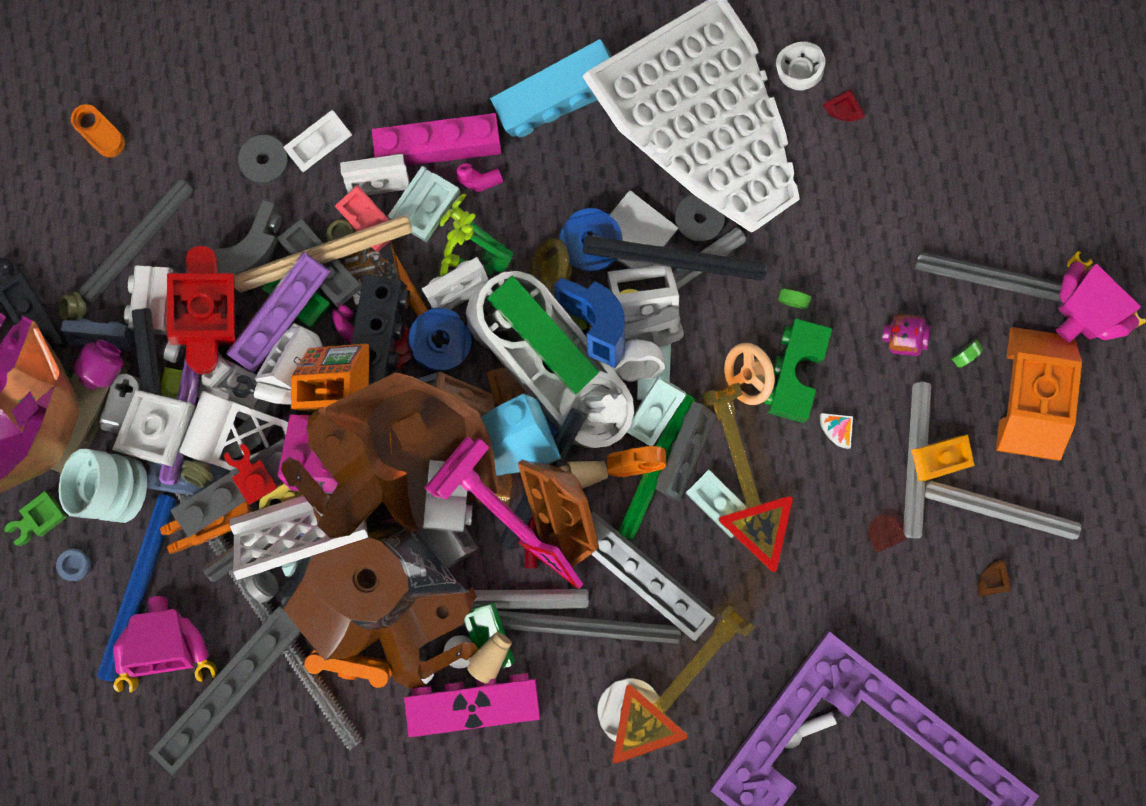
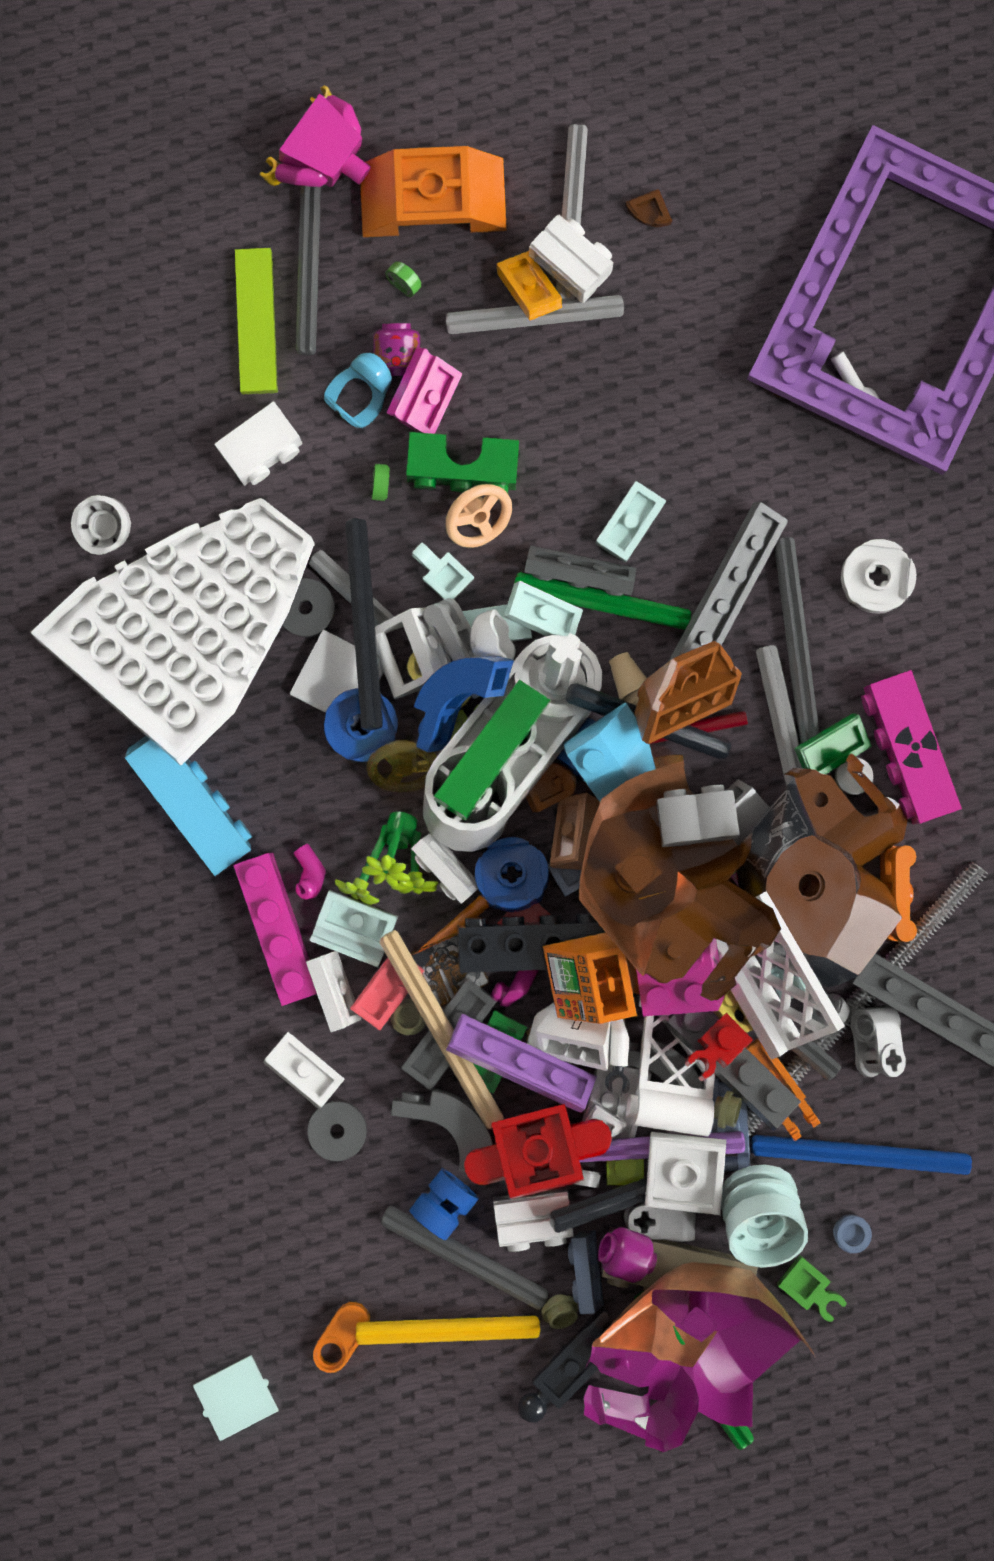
camera: 105 degrees left, 5 degrees up
(72, 41) = (235, 1397): none -> light aqua piece
(80, 214) = (447, 1330): none -> yellow axle
(158, 644) = (921, 1112): dark pink torso -> none
(178, 225) = (436, 1215): none -> blue wheel
(230, 620) = (876, 1038): none -> light grey piece
(459, 471) = (673, 804): dark pink piece -> none
(489, 658) = (858, 738): tan cone -> none
(636, 461) = (605, 622): orange piece -> none
(644, 724) = (890, 556): clear yellow piece -> none
(704, 337) = (446, 575): none -> light aqua plate
(760, 525) = (646, 471): piece -> none
(837, 428) = (518, 407): tile -> none
(844, 205) = (259, 444): none -> white piece
(845, 107) = (139, 466): dark red tile -> none
(864, 349) = (424, 392): none -> plate
(885, 533) = (623, 335): clear red tile -> none
(889, 310) = (372, 371): none -> medium azure piece
(952, 225) = (256, 321): none -> lime tile
(960, 497) = (571, 257): none -> white brick

